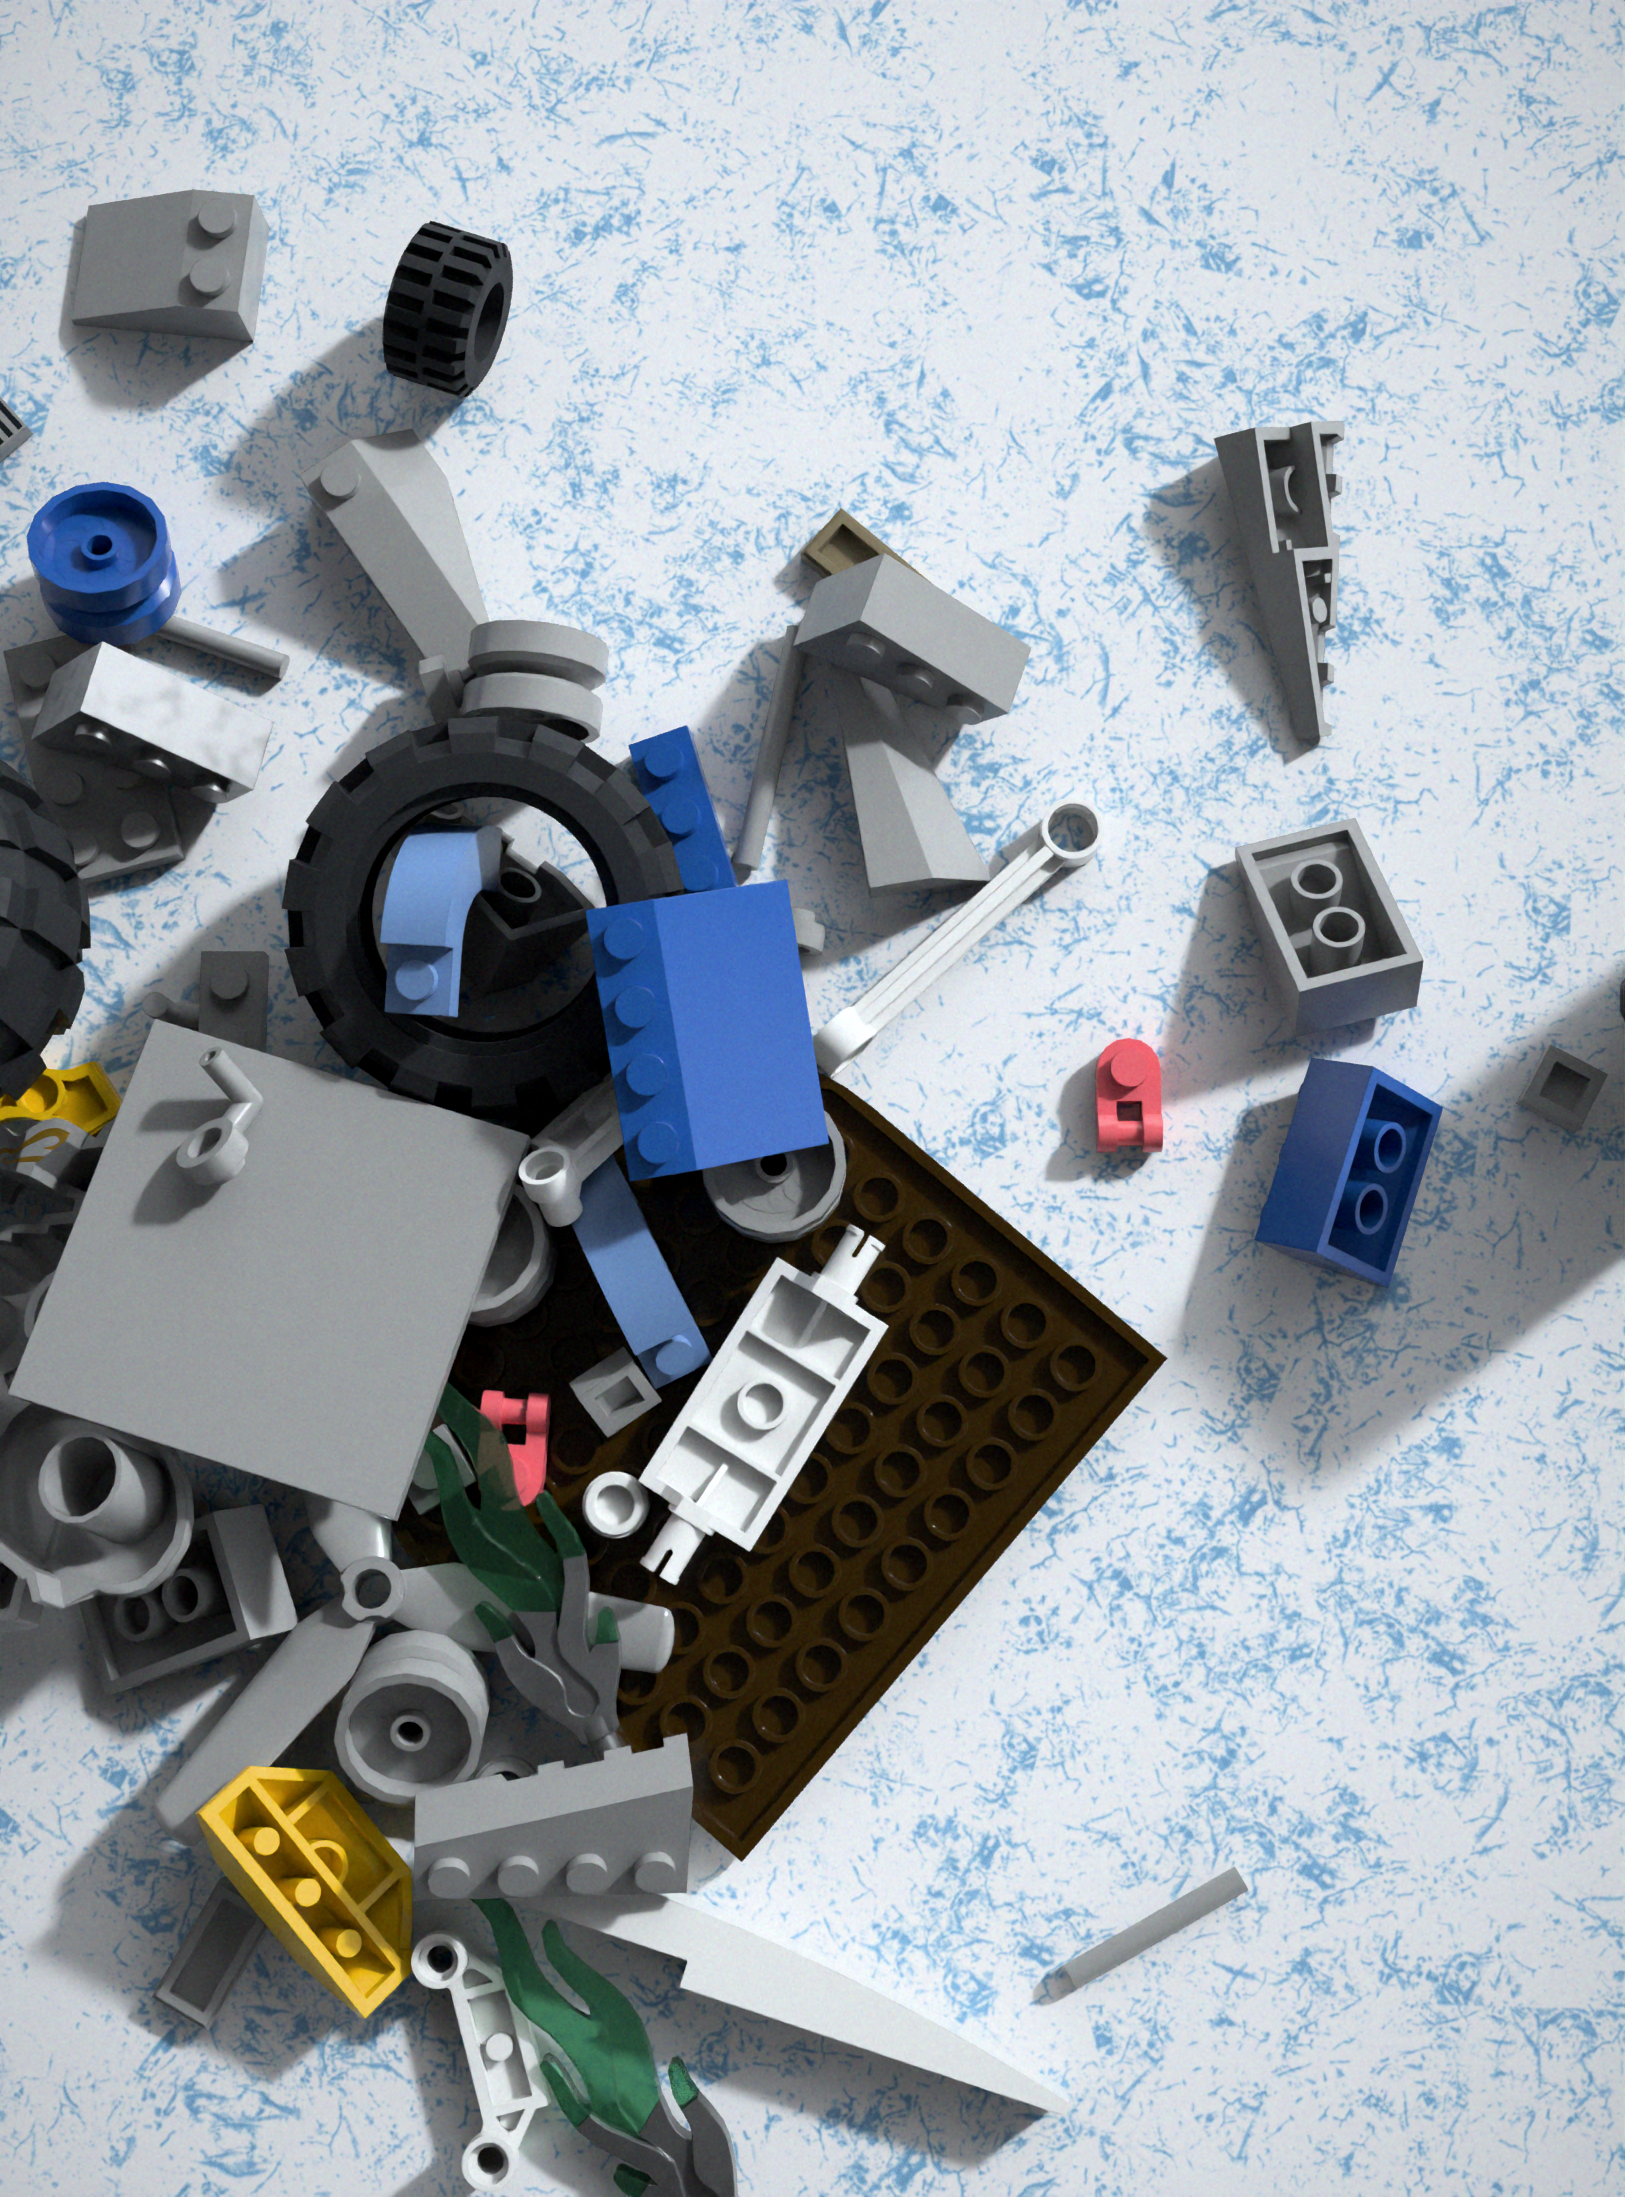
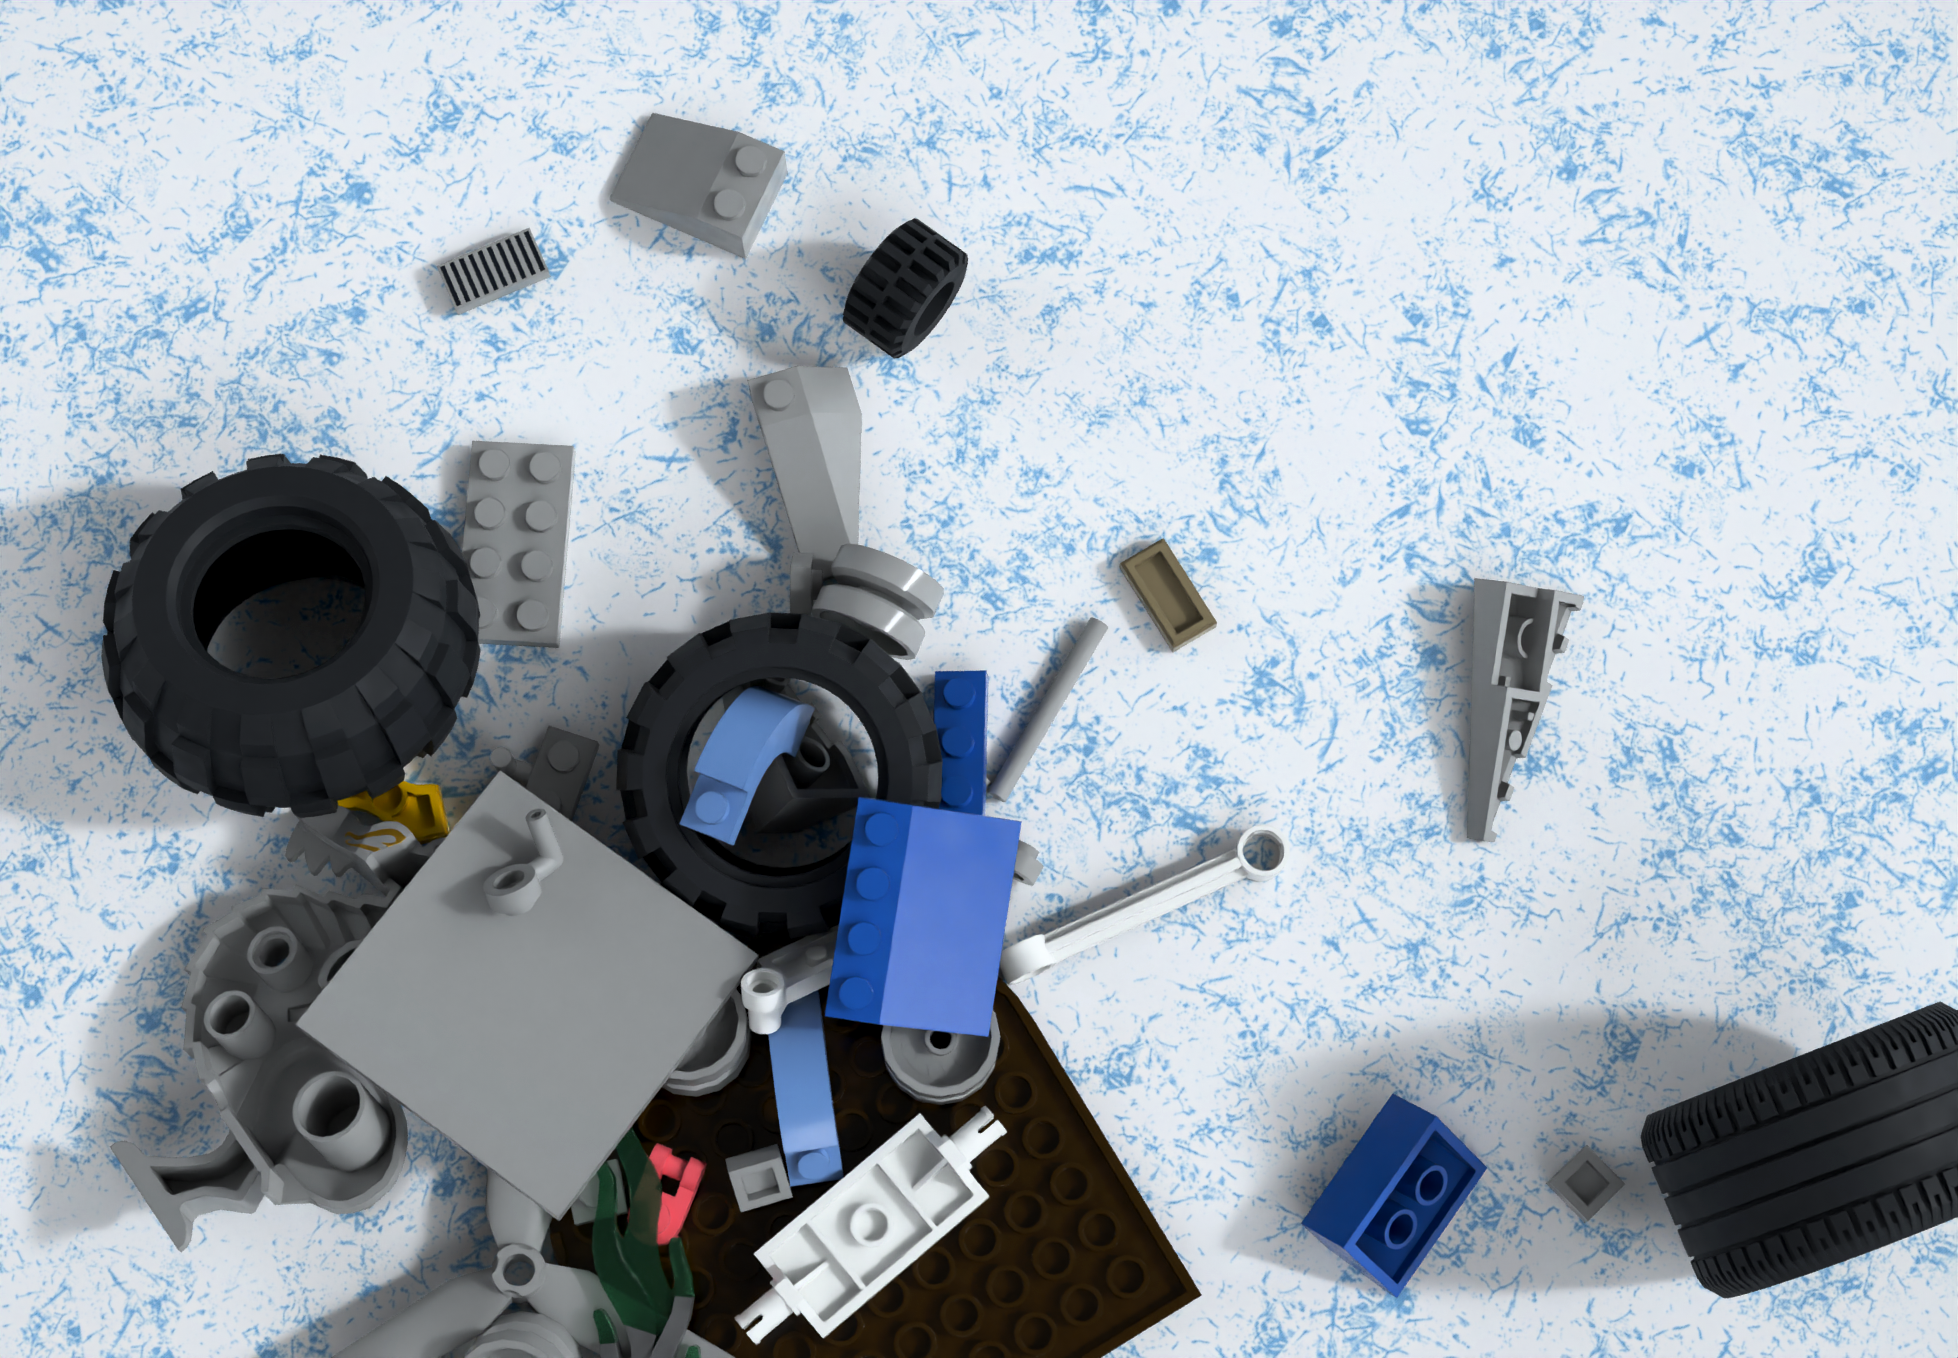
camera: 10 degrees right, 5 degrees down
(104, 563) = (574, 400): blue wheel -> none
(152, 724) = (570, 538): wedge -> none
(215, 1604) = (392, 1244): light grey slope -> none
(224, 646) = (627, 477): light grey bar -> none
(615, 1504) = (730, 1267): white tile -> none
(902, 812) = (1134, 792): light grey wedge -> none
(913, 640) = (1184, 663): light grey wedge -> none
(1128, 1075) = (1243, 1060): coral plate -> none
(1329, 928) = (1440, 994): light grey slope -> none

